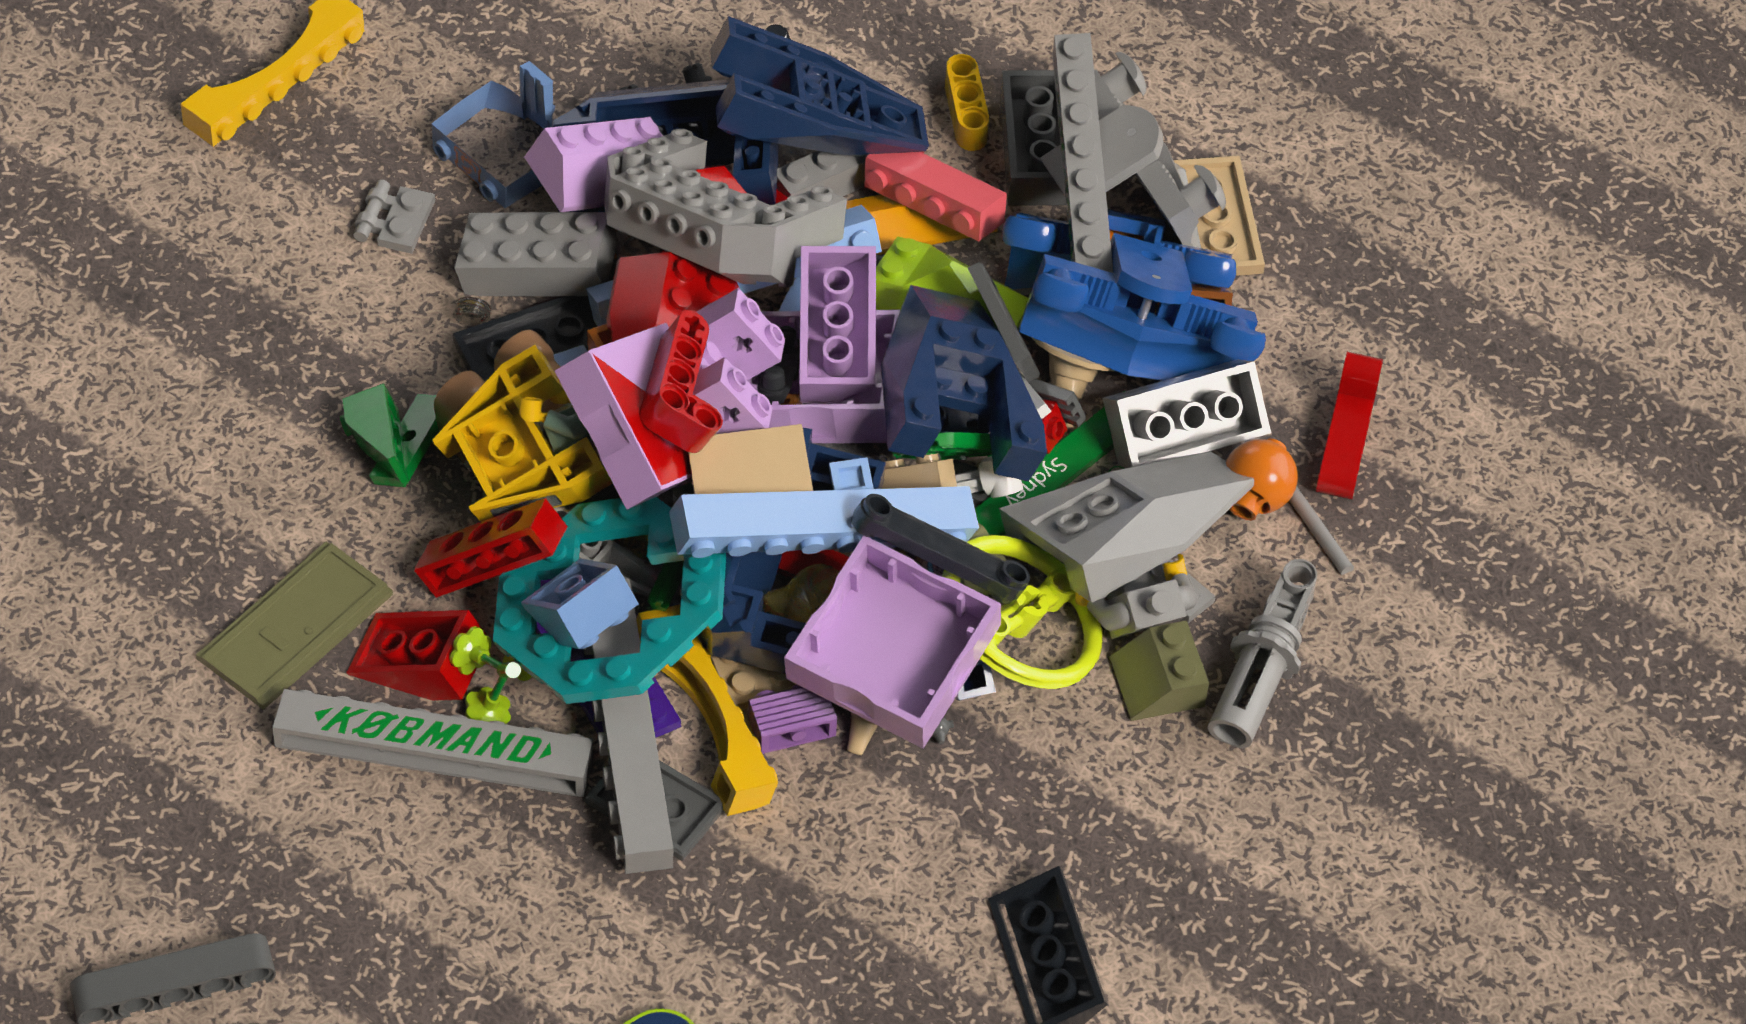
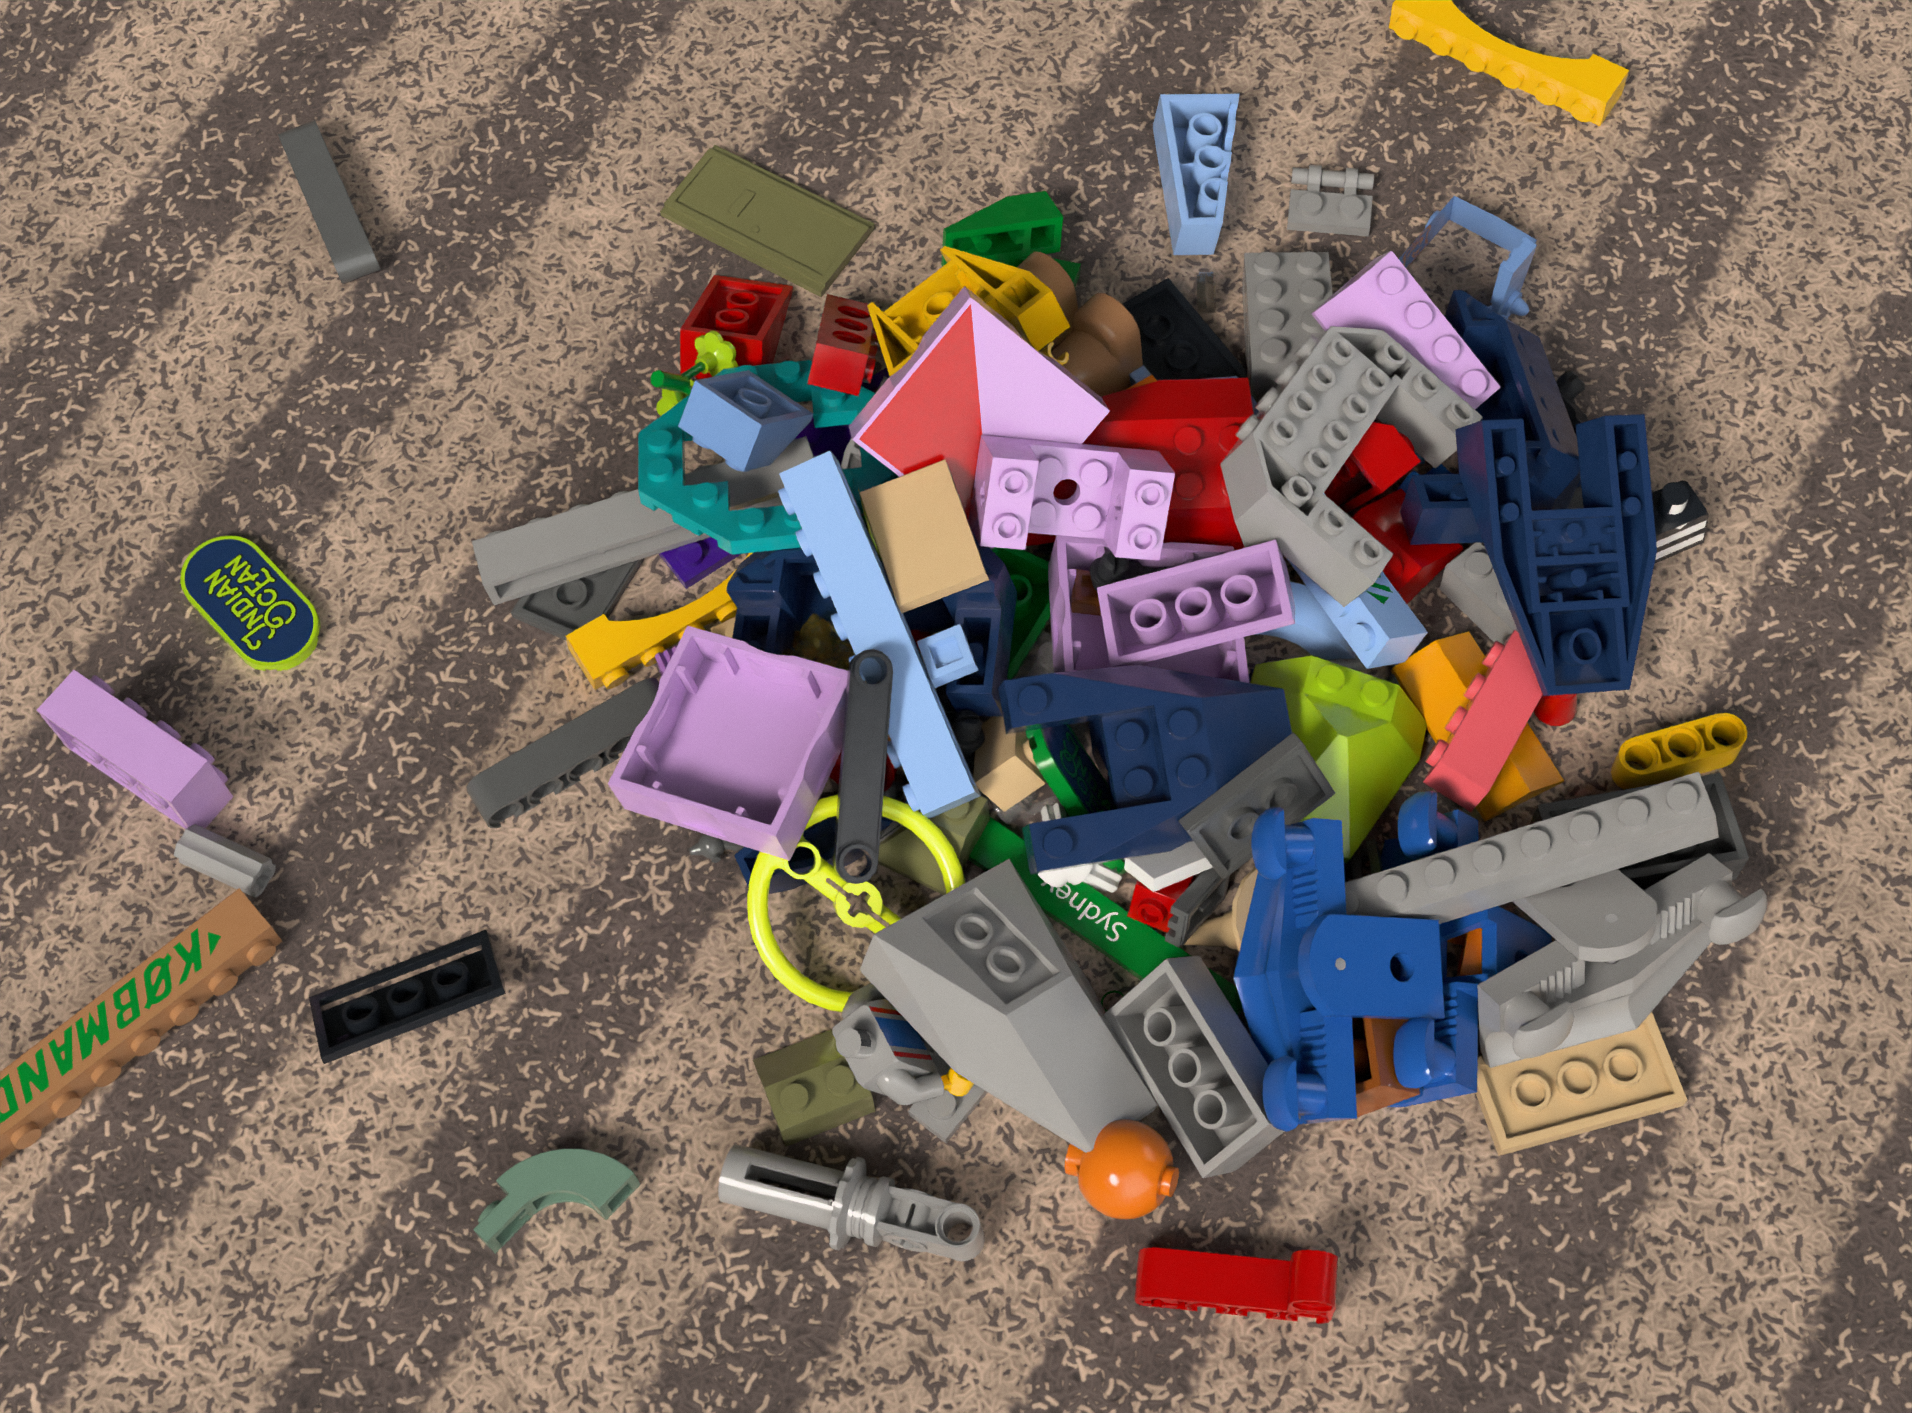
camera: 90 degrees right, 10 degrees up
(346, 293) = (1194, 161): none -> light blue wedge
(433, 742) = (624, 353): light grey brick -> none
(669, 400) = (1010, 425): red beam -> none
(838, 815) = (561, 756): none -> dark grey beam
(1221, 861) = (551, 1179): none -> sand green arch
(1320, 532) = (1094, 1254): light grey bar -> none

